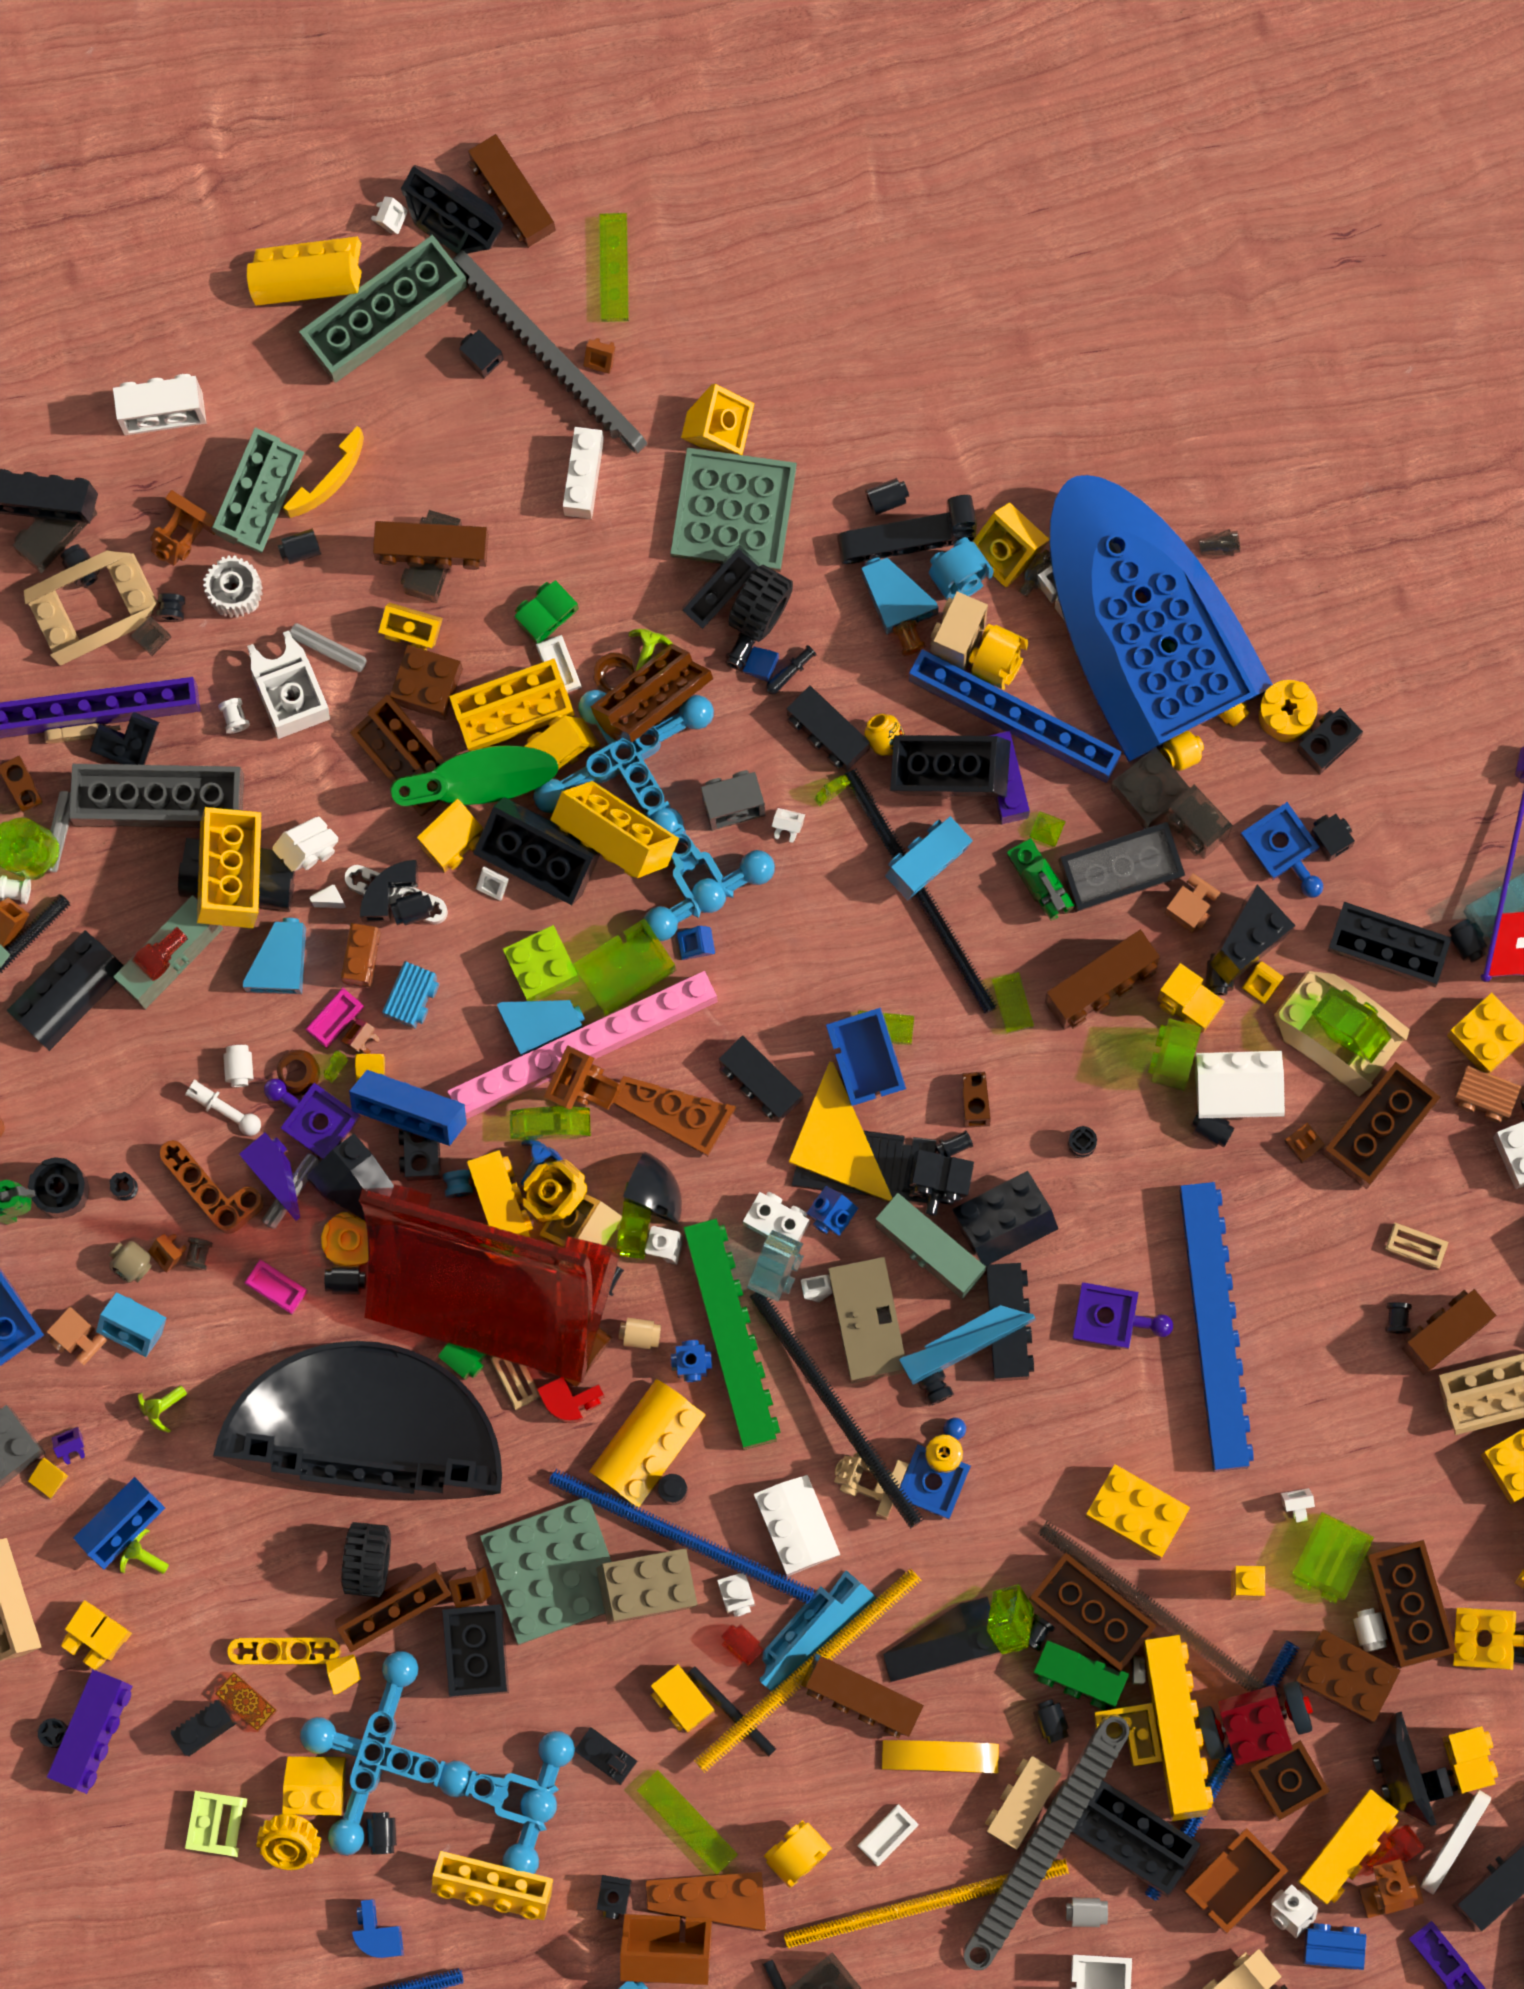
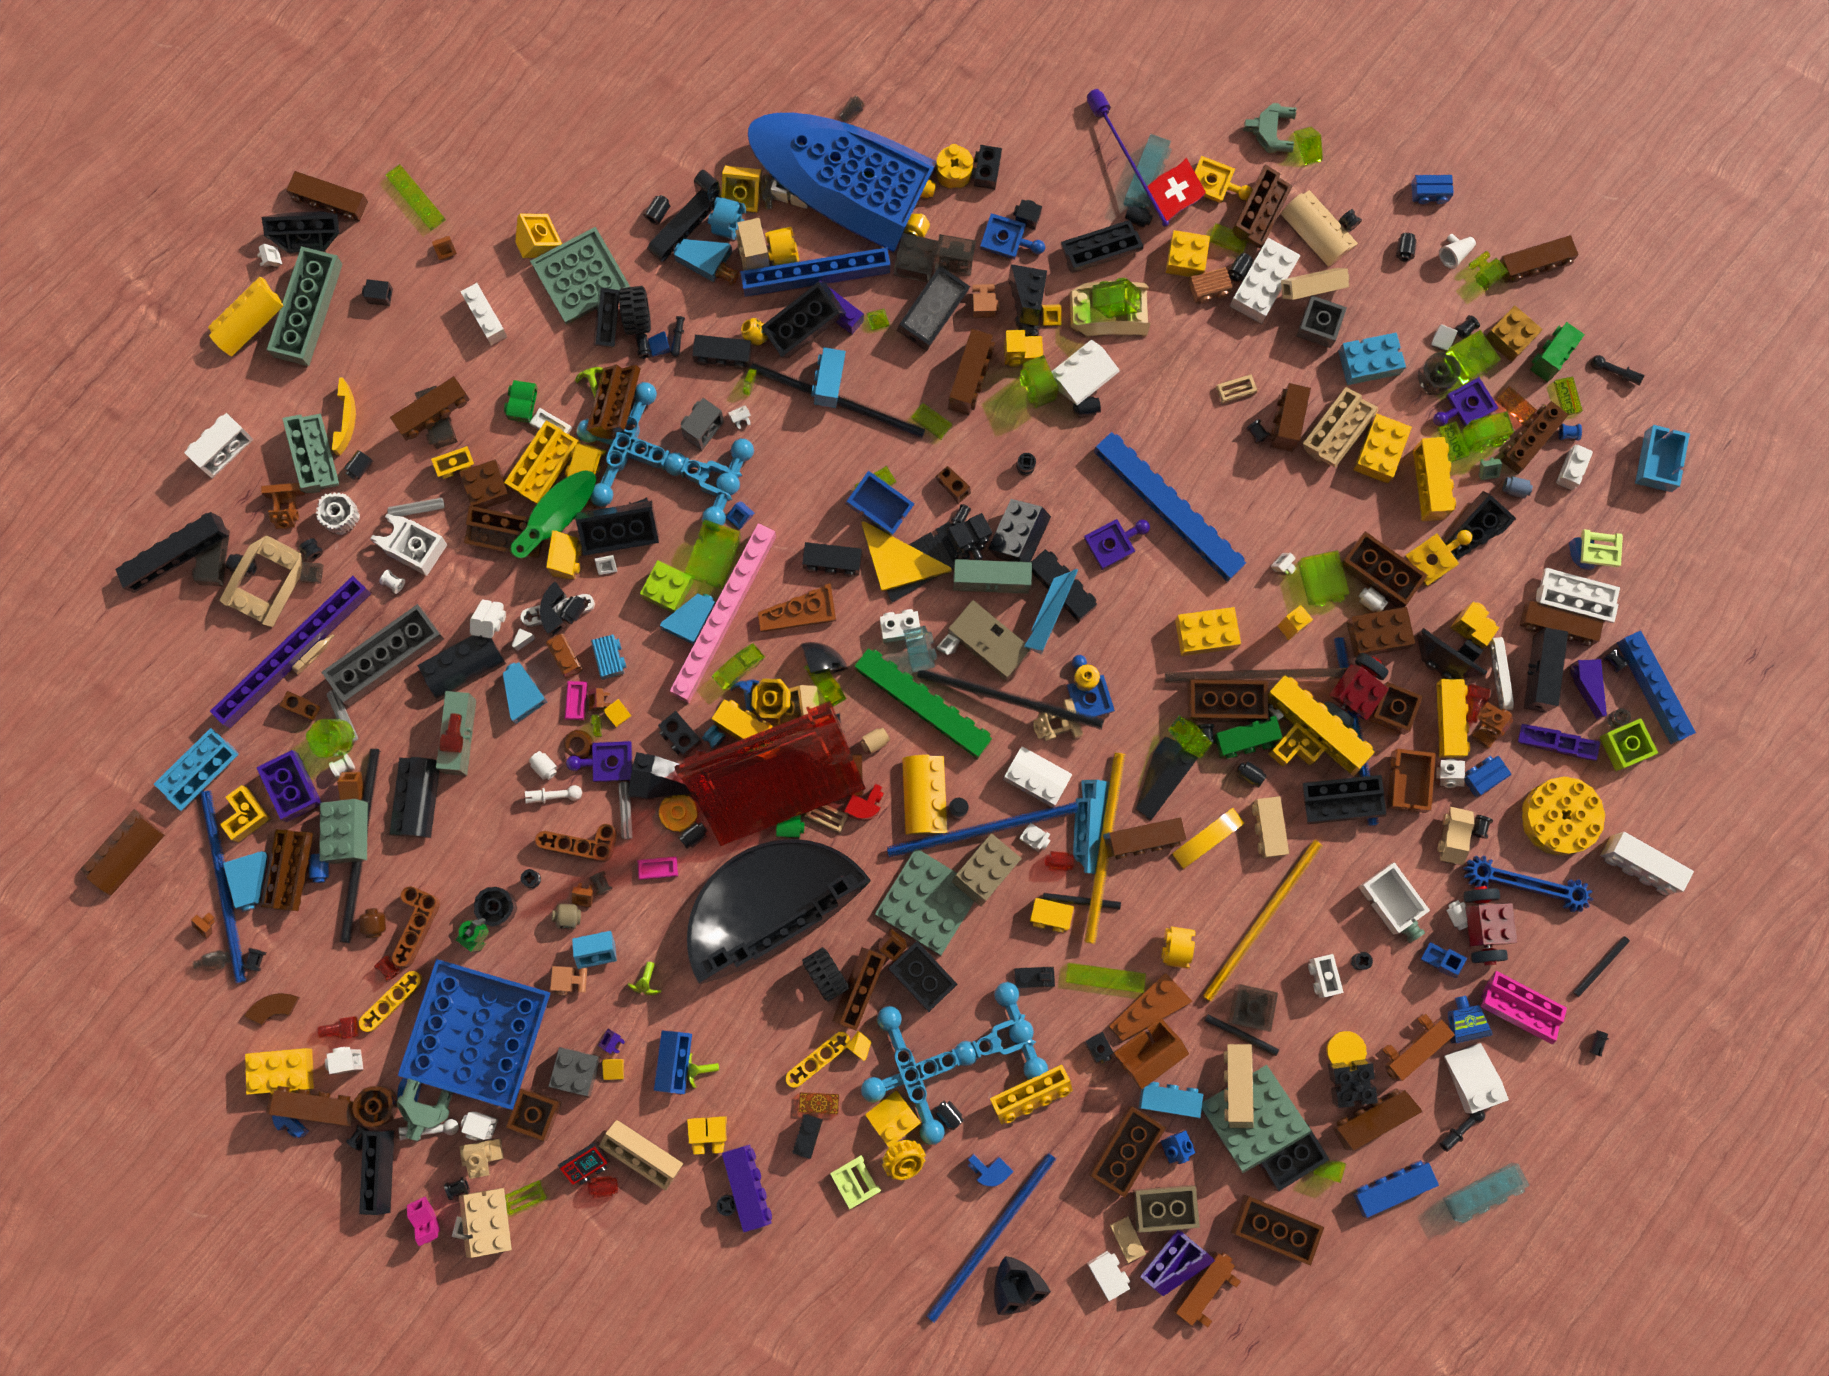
camera: 50 degrees left, 0 degrees up
(126, 748) = (346, 641): black tile -> none
(229, 867) = (454, 660): yellow brick -> none
(274, 1170) = (604, 805): dark purple slope -> none
(408, 1107) = (655, 715): blue brick -> none
(548, 352) = (417, 265): dark grey gear -> none
(587, 1084) = (742, 630): dark orange tile -> none
(609, 661) = (576, 403): reddish brown piece -> none
(614, 829) = (650, 485): yellow brick -> none
(664, 1244) = (850, 682): white bracket -> none
(692, 1372) = (914, 740): blue brick -> none
(831, 1211) = (925, 598): blue brick -> none
(888, 1835) = (1214, 900): white tile -> none
(935, 1388) = (1053, 649): black wheel -> none
(1040, 879) = (896, 346): green plate -> none
(1046, 1842) = (1301, 838): dark grey gear -> none
(1087, 1912) = (1349, 858): light grey brick -> none
(1304, 1142) = (1138, 379): dark orange tile -> none
(1381, 1125) = (1171, 339): reddish brown brick -> none

